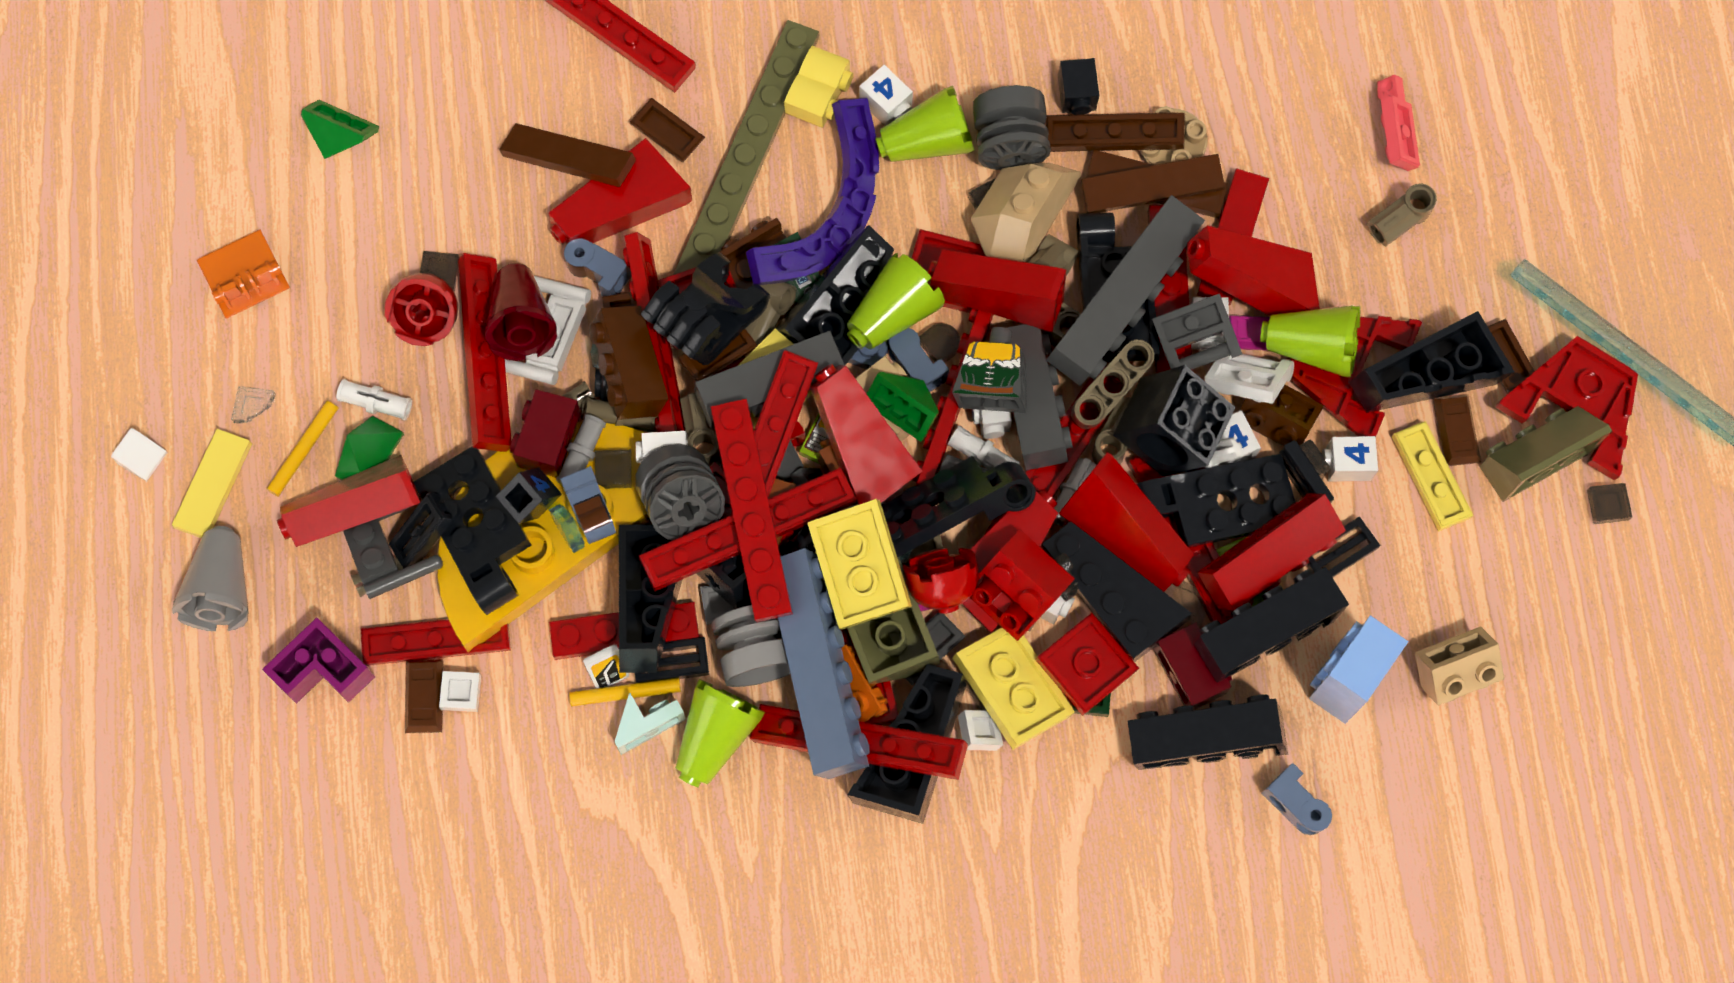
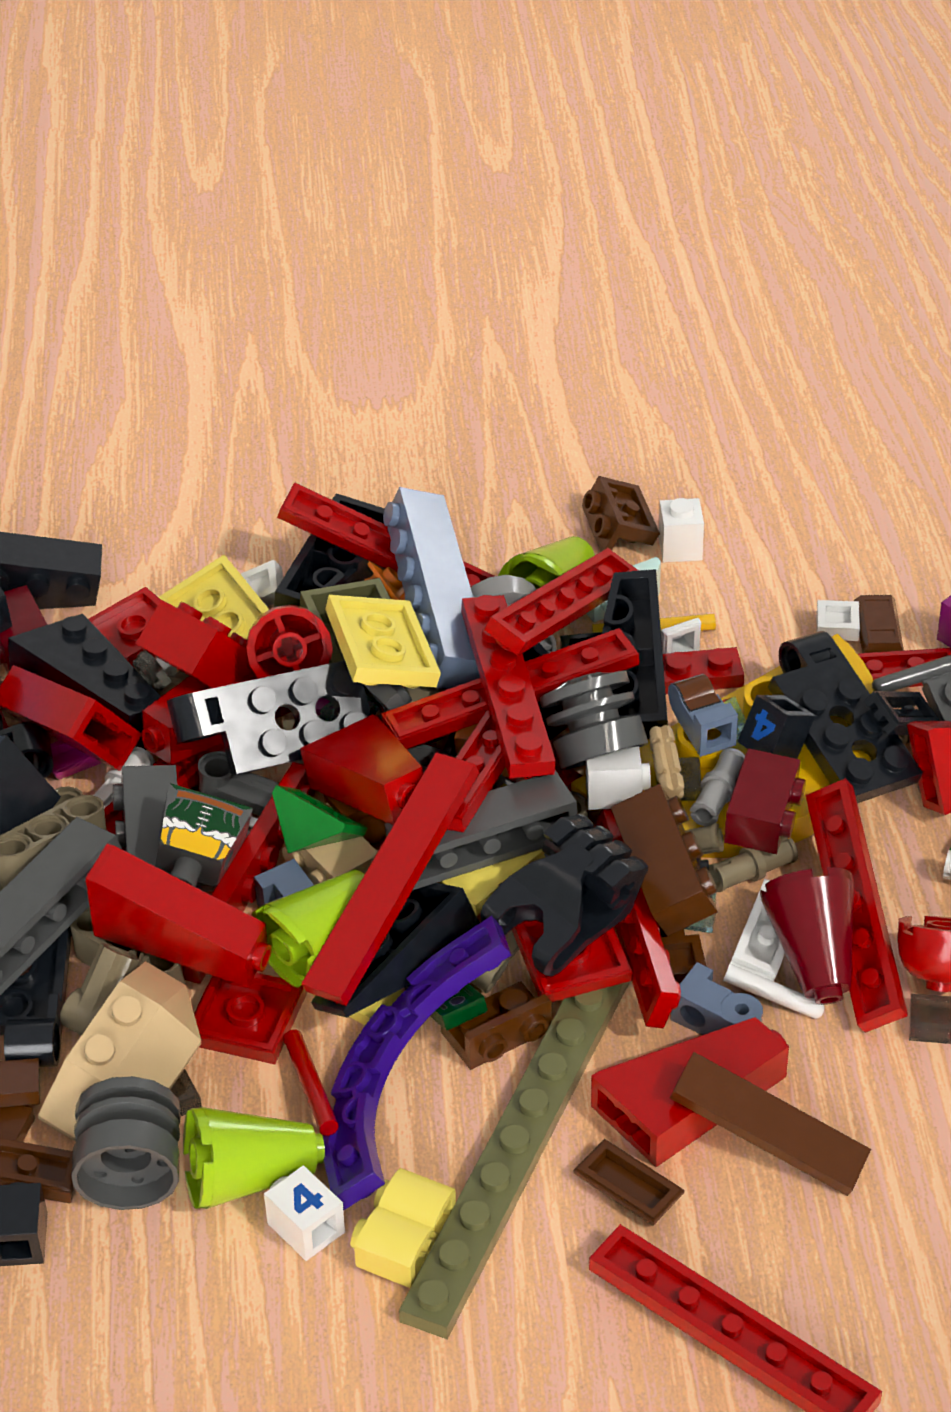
camera: 175 degrees left, 30 degrees down
(593, 805) = (681, 530): none -> white brick
(621, 464) = (666, 760): none -> tan axle
(650, 837) = (618, 511): none -> reddish brown bracket
(701, 619) = (556, 603): none -> red plate
(835, 309) = (390, 879): none -> red tile
(891, 201) = (311, 1082): none -> red bar

